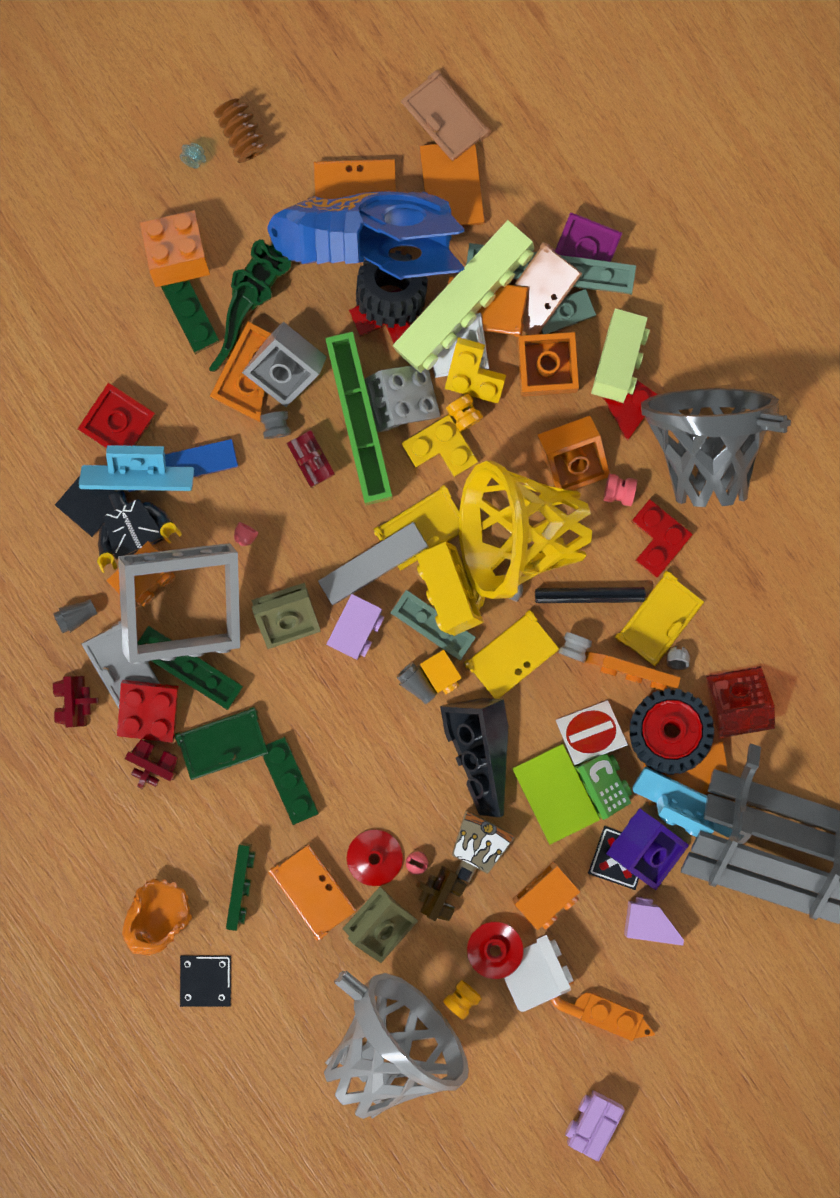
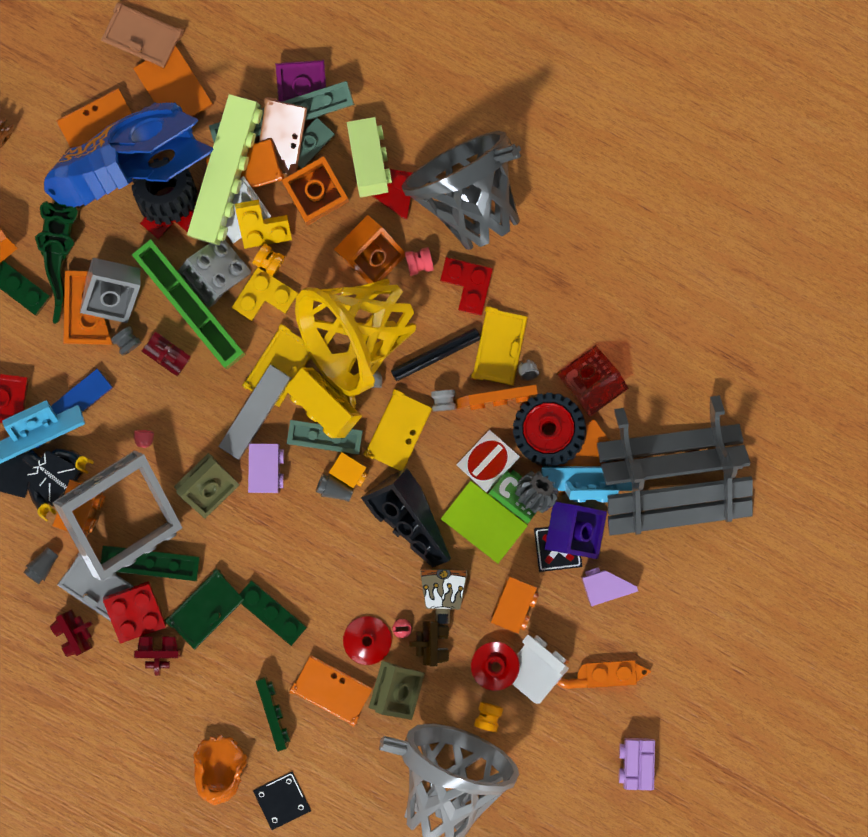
camera: 25 degrees left, 0 degrees up
(628, 791) = (536, 492): none -> dark grey gear

